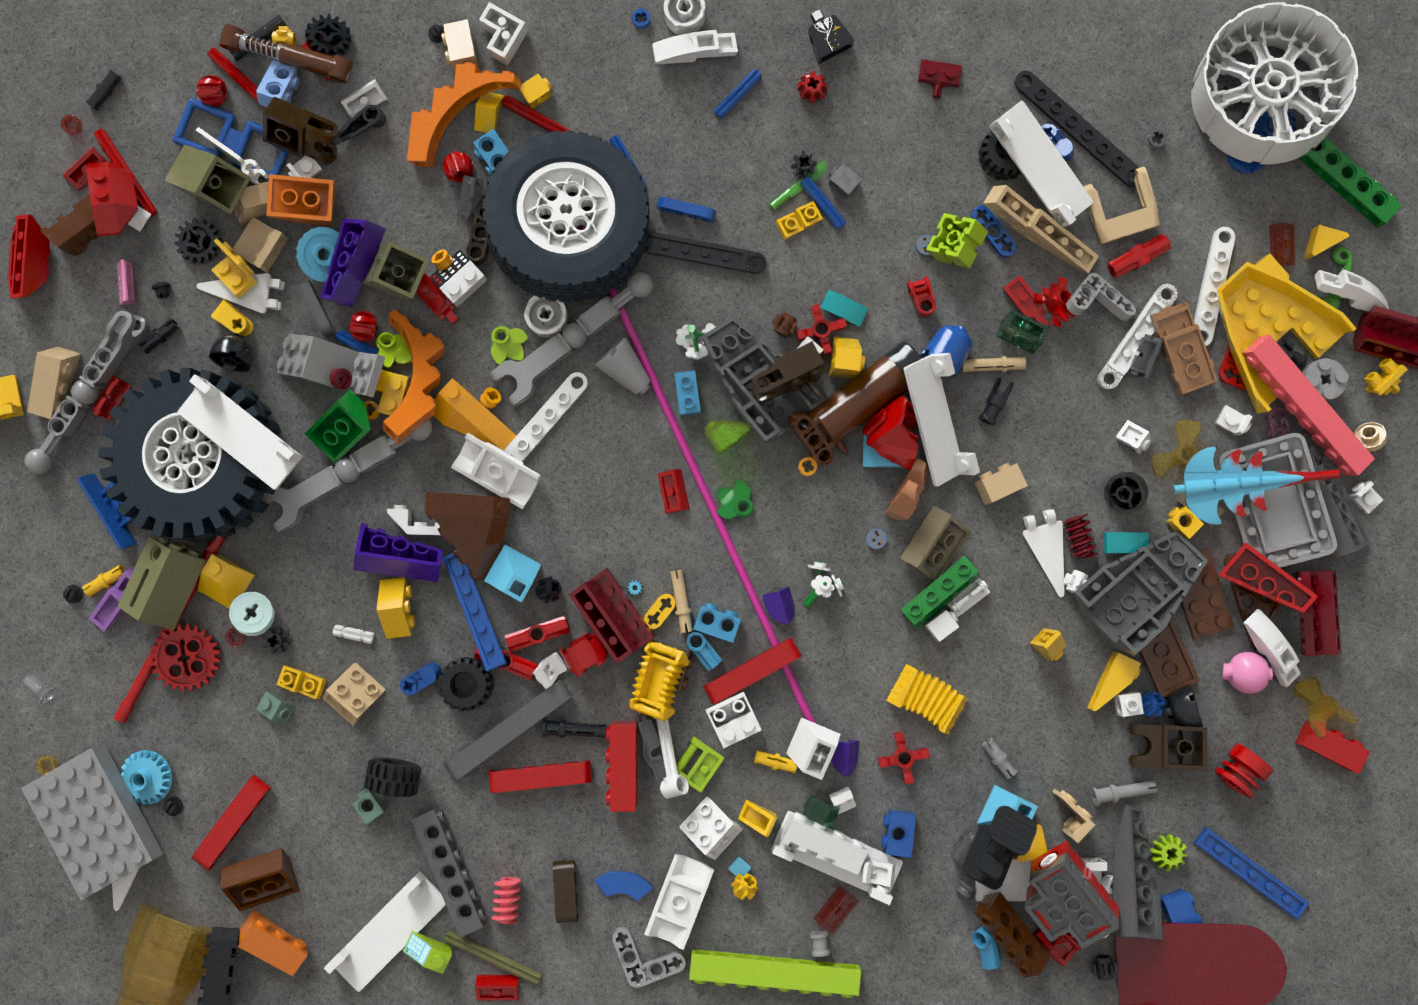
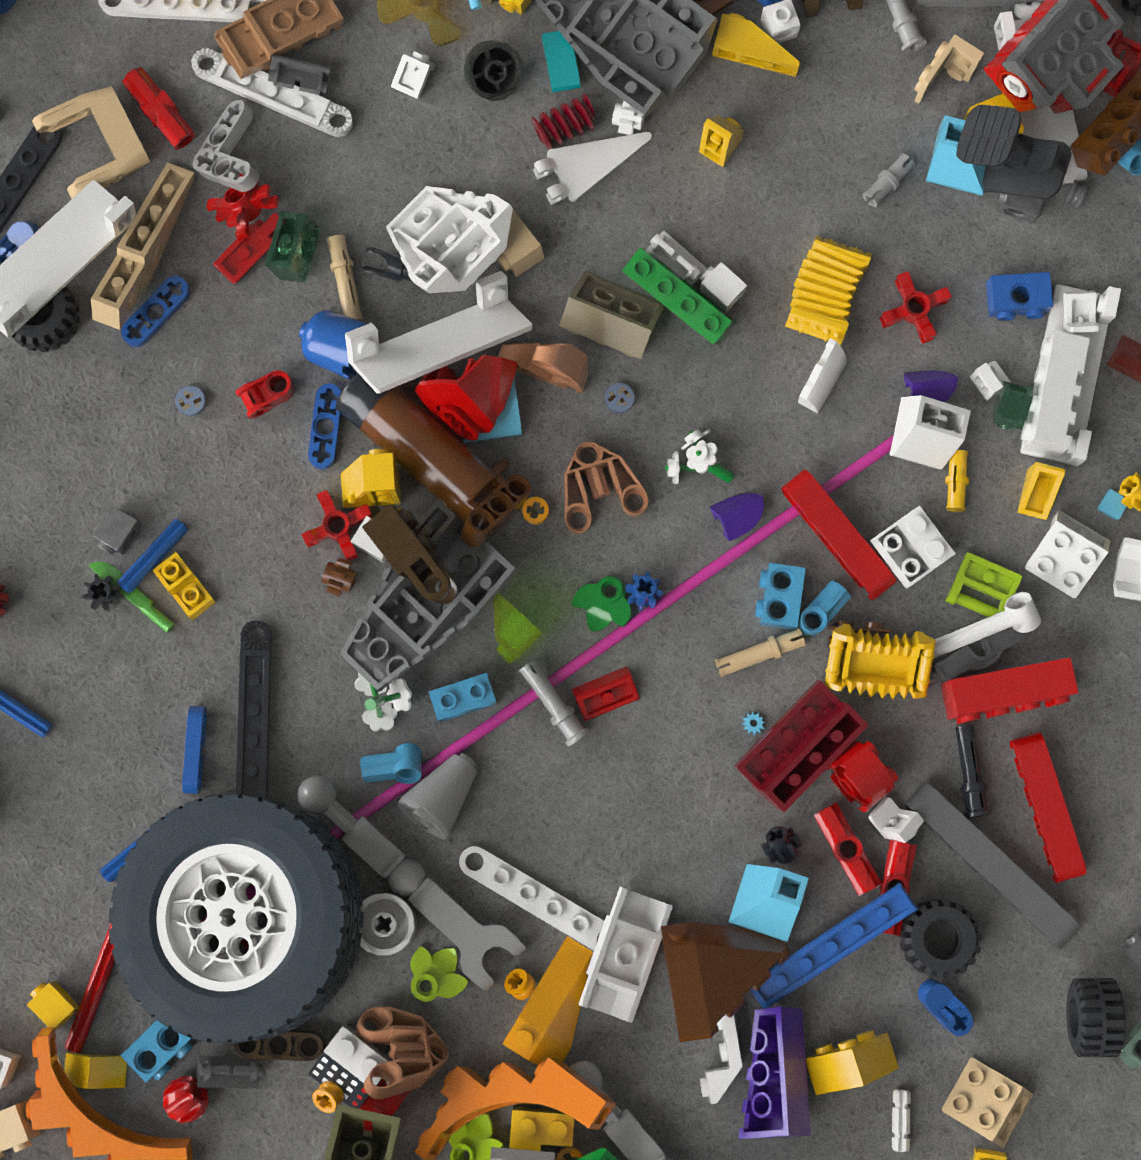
camera: 100 degrees left, 5 degrees down
(466, 318) = (410, 1051): none -> nougat connector
(650, 344) = (402, 765): none -> dark azure piece
(655, 607) = (783, 675): yellow beam -> none
(664, 458) = (562, 715): none -> light grey pin
(743, 532) = (643, 599): none -> blue gear
(814, 495) = (622, 478): none -> nougat connector
(843, 307) = (300, 499): teal slope -> none
(864, 682) = (823, 377): none -> white slope
(878, 324) = (315, 447): none -> blue beam
(957, 240) = (179, 356): lime brick -> none
(1008, 439) = (450, 237): none -> white wedge

